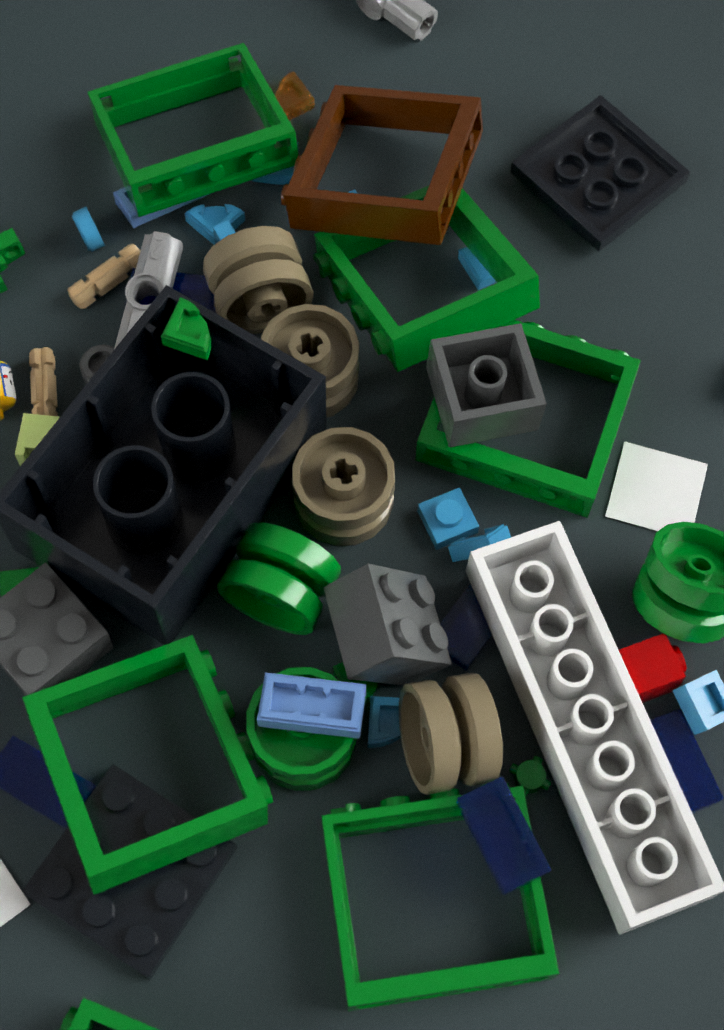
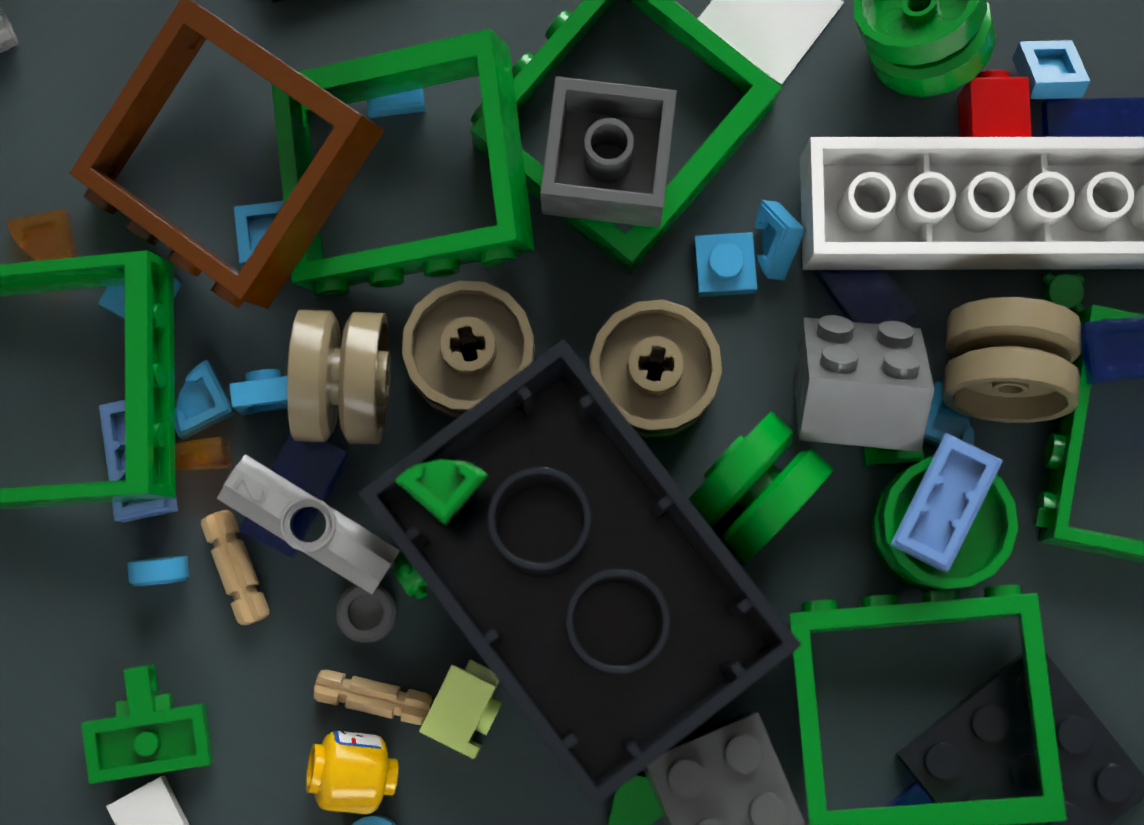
camera: 70 degrees left, 15 degrees up
(178, 228) = (203, 454): none -> clear orange tile

